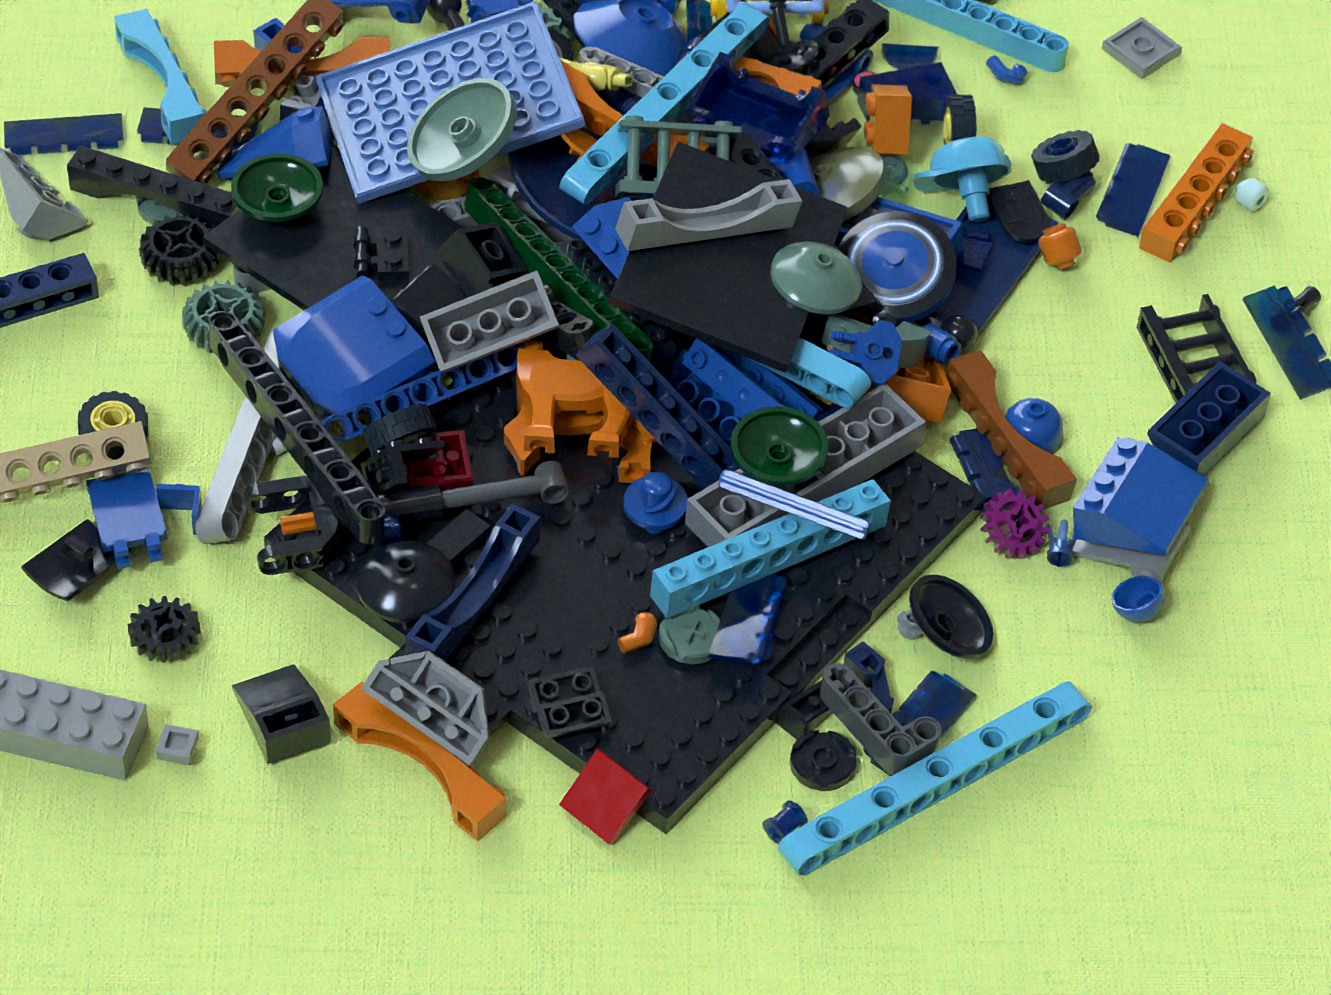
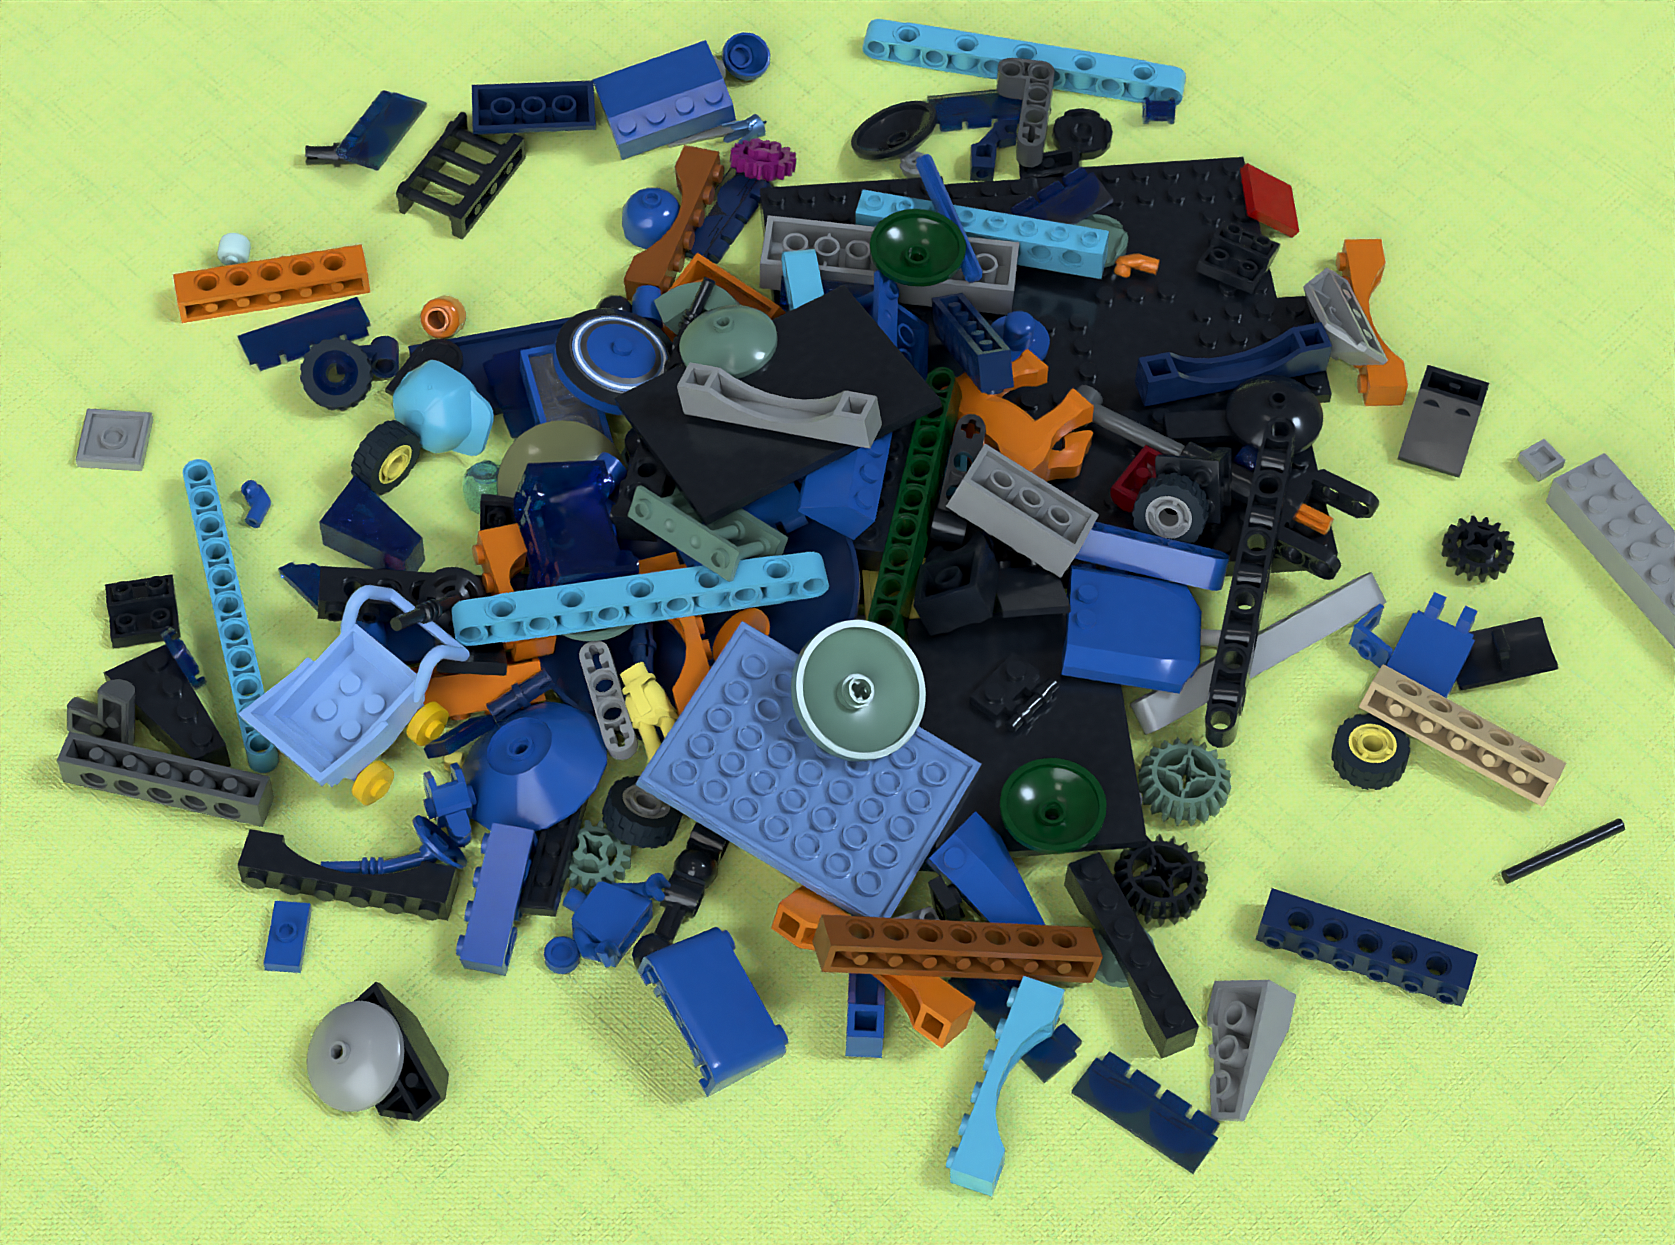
camera: 135 degrees left, 5 degrees up
(868, 348) = (751, 278): blue hinge -> none
(889, 119) = (439, 497): orange brick -> none

